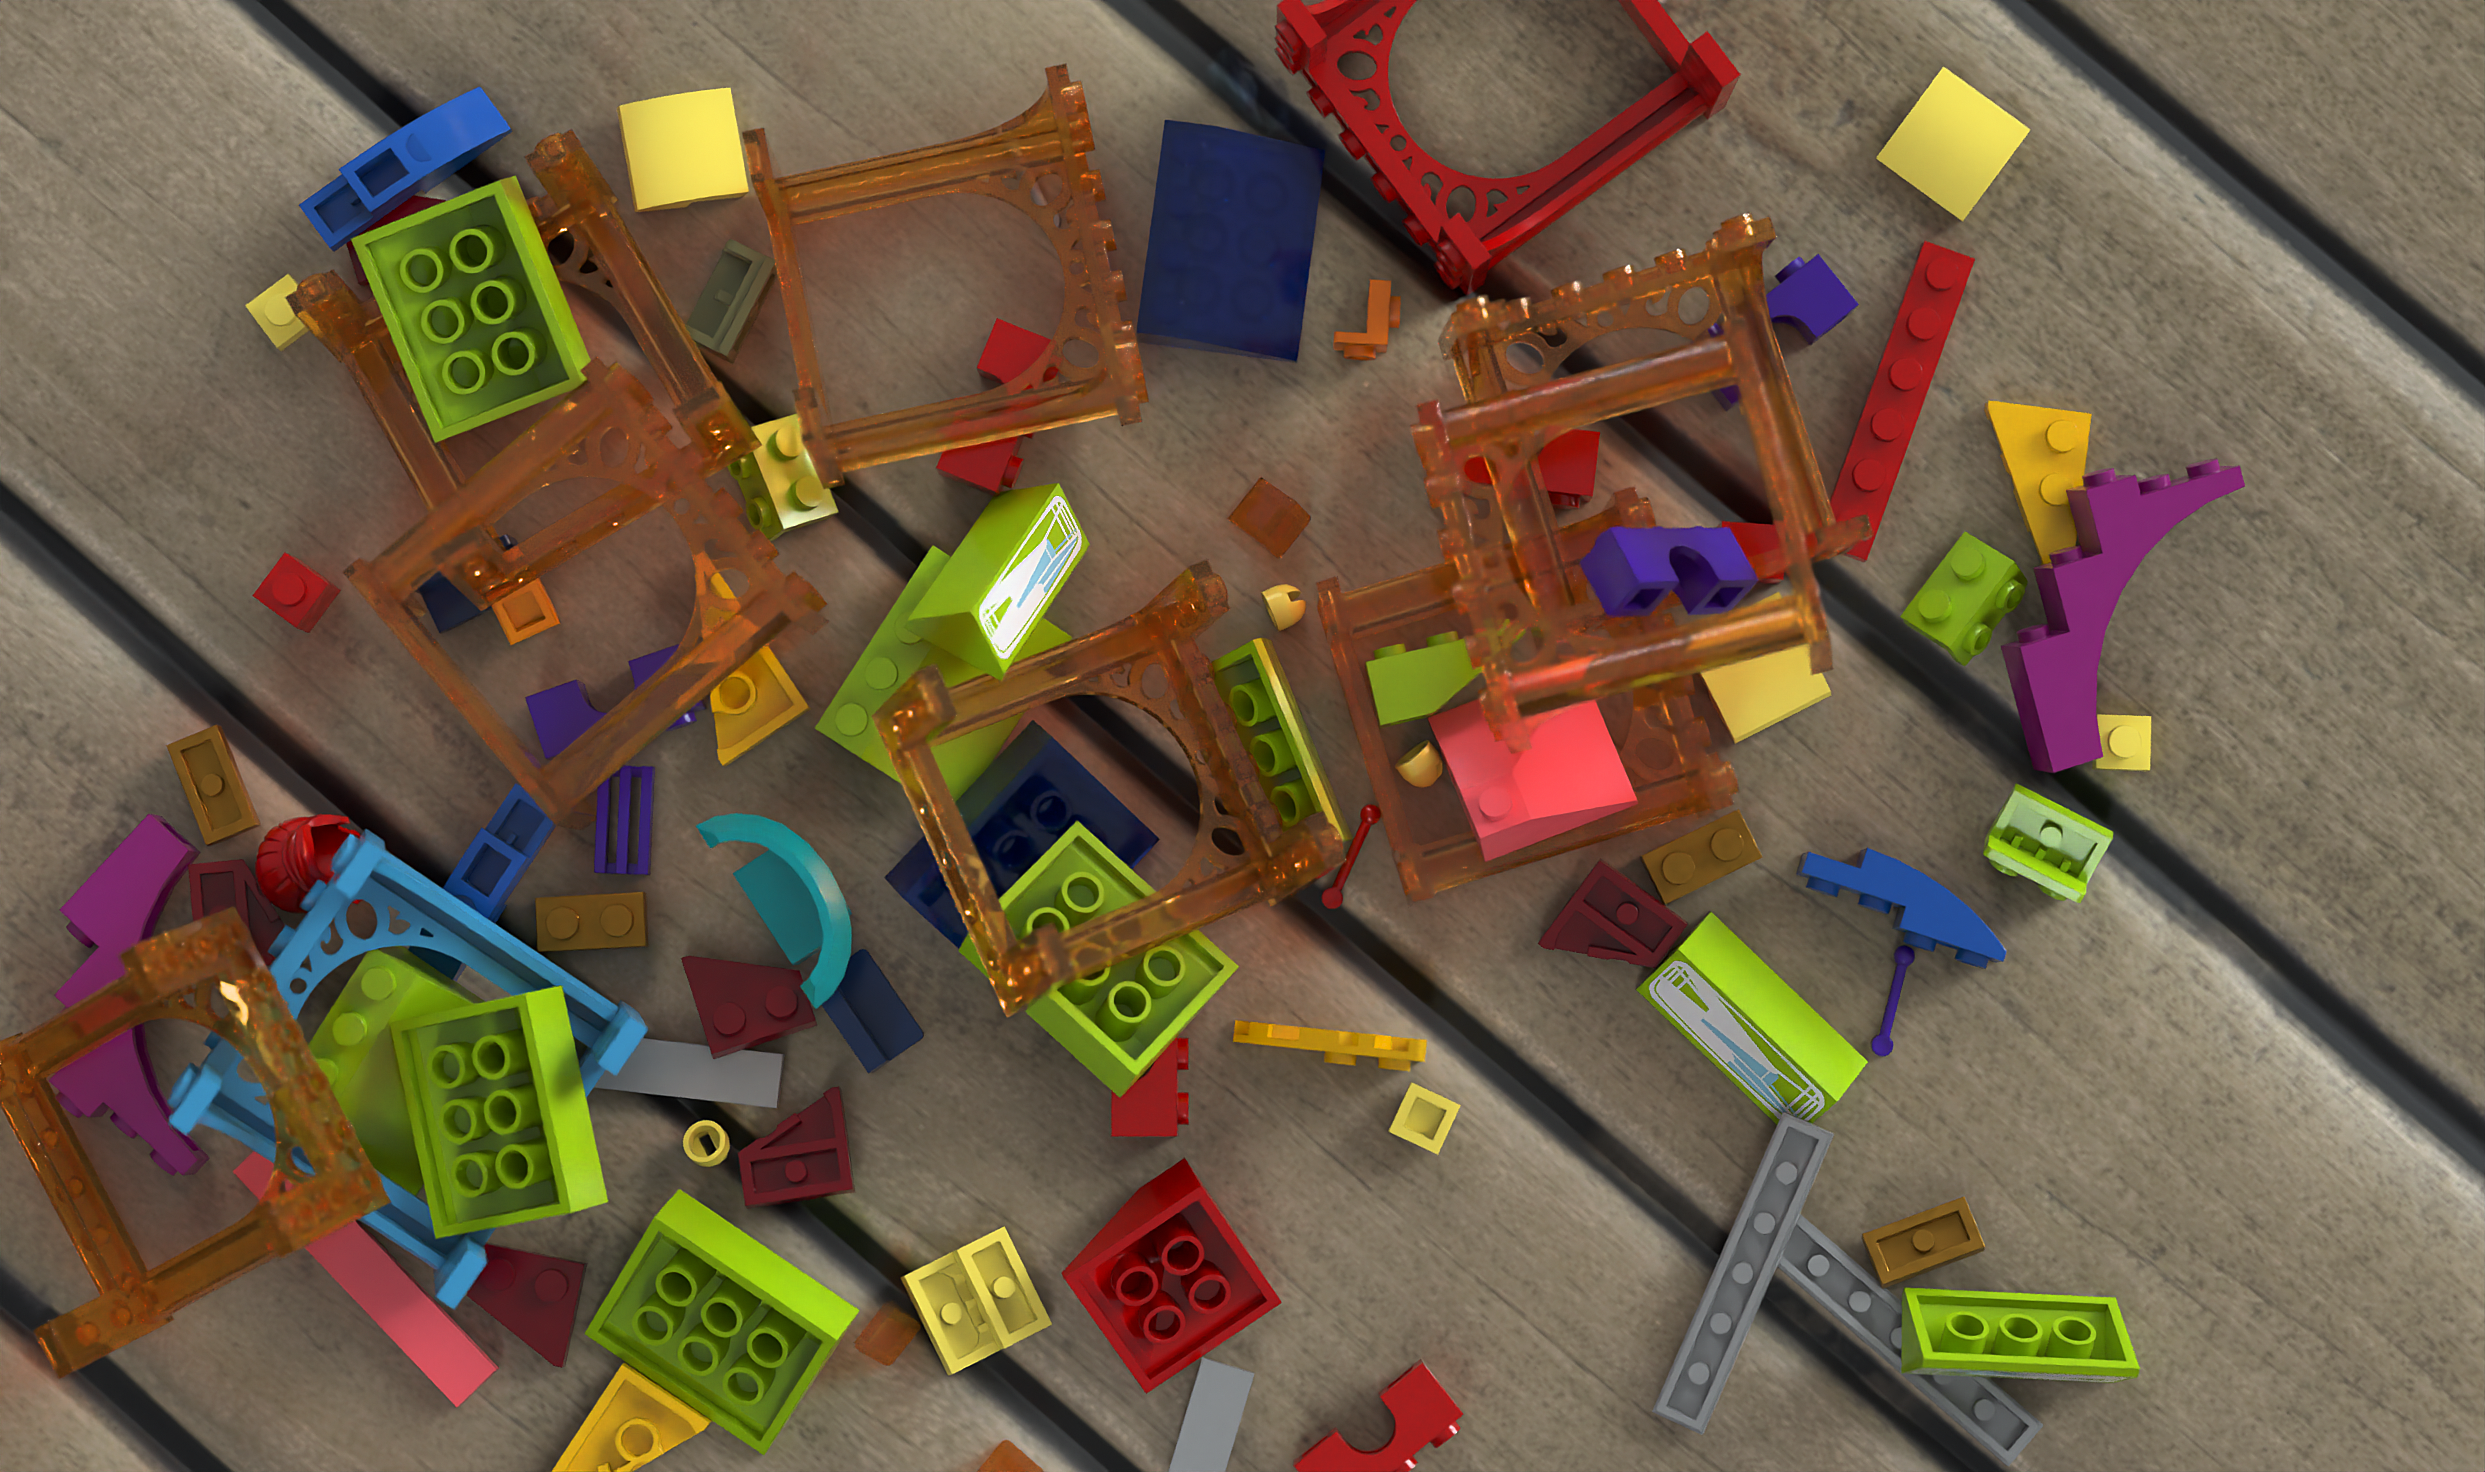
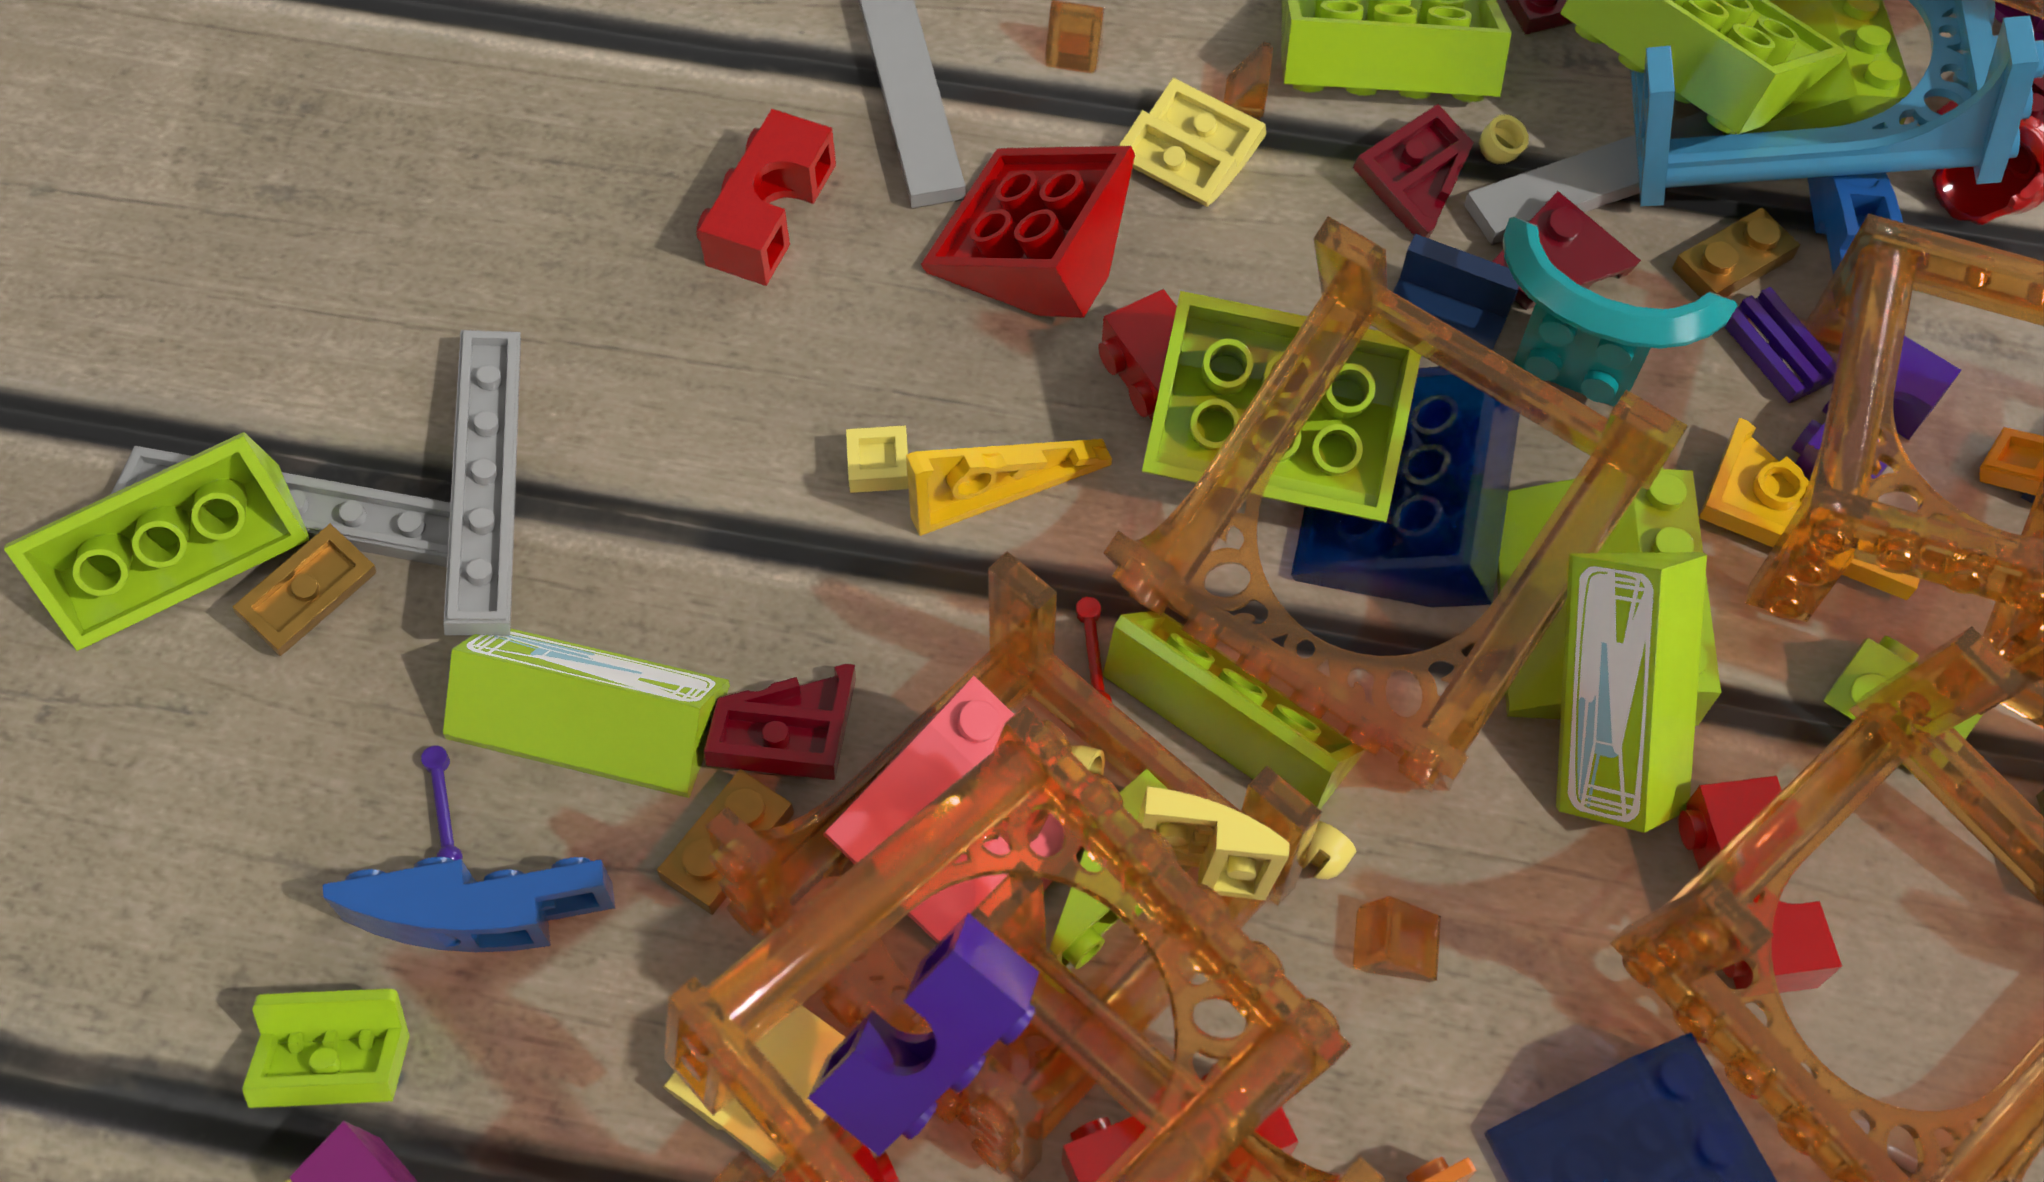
camera: 145 degrees right, 25 degrees down
(1380, 611) = (1230, 848): none -> light yellow slope

